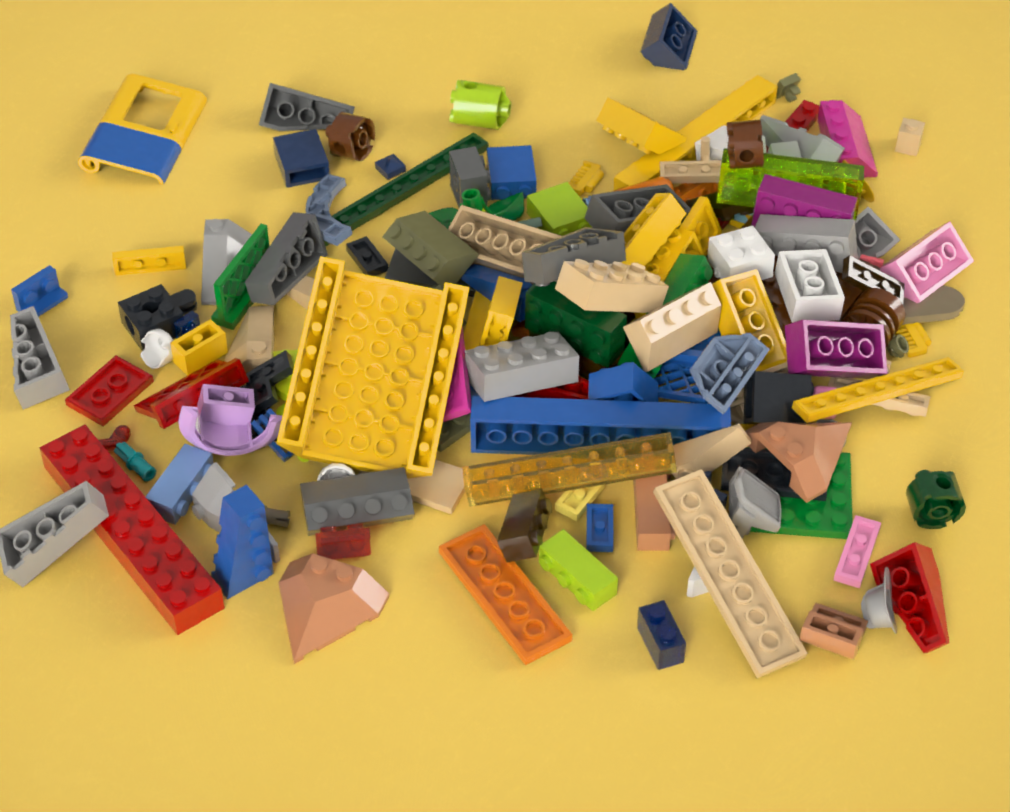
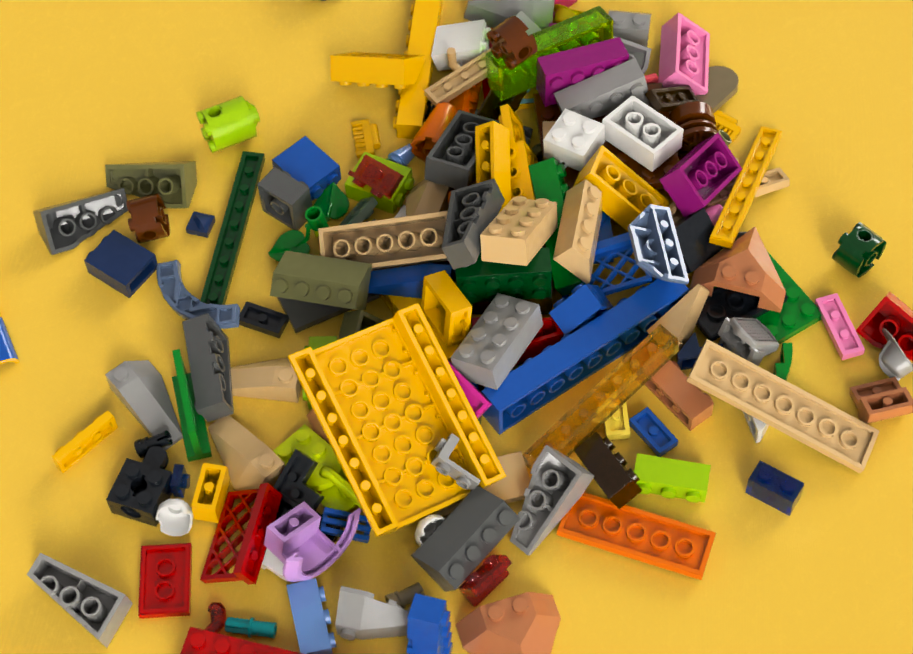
camera: 35 degrees left, 10 degrees up
(40, 291) = (23, 537): blue bracket -> none
(199, 289) = (144, 444): none -> black pin
(393, 122) = (172, 180): none -> olive wedge
(394, 419) = (449, 468): none -> light grey bracket
(462, 511) = (552, 491): none -> light grey wedge
(553, 201) = (376, 176): none -> clear red bracket
(767, 553) = (782, 369): none -> green slope
(901, 216) = (631, 26): none -> light grey slope

